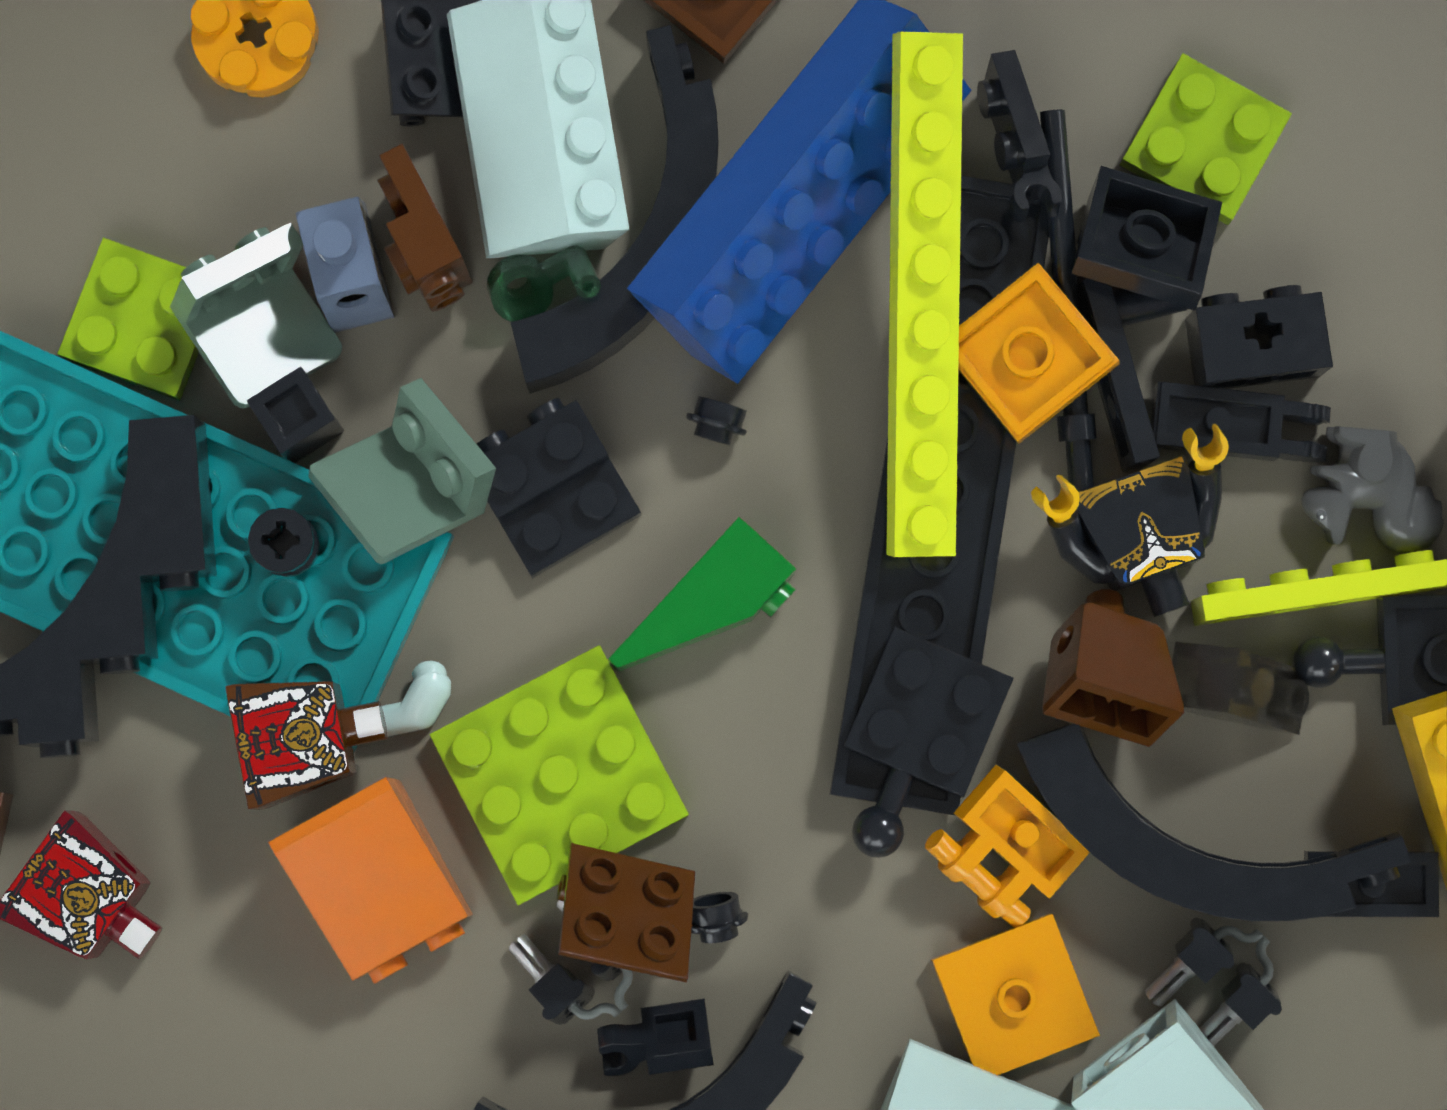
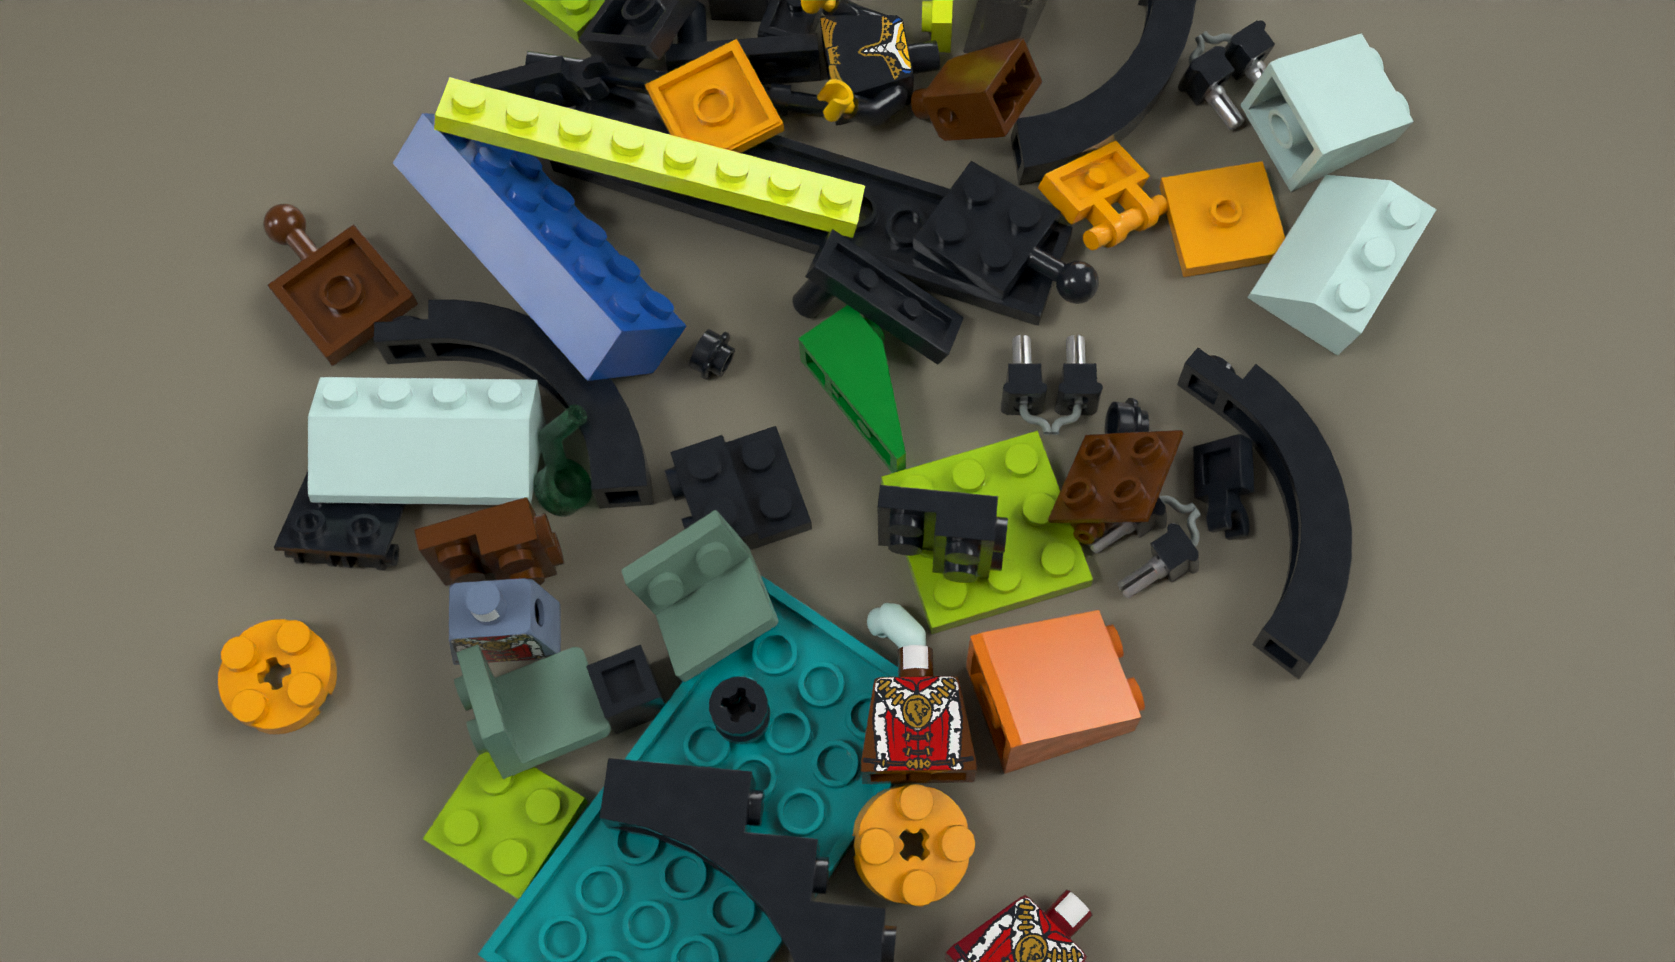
camera: 70 degrees left, 15 degrees down
(147, 767) = (945, 844): none -> light orange plate
(511, 744) = (954, 525): none -> black plate
(741, 790) = (1026, 393): none -> black piece
(812, 603) = (878, 294): none -> black piece

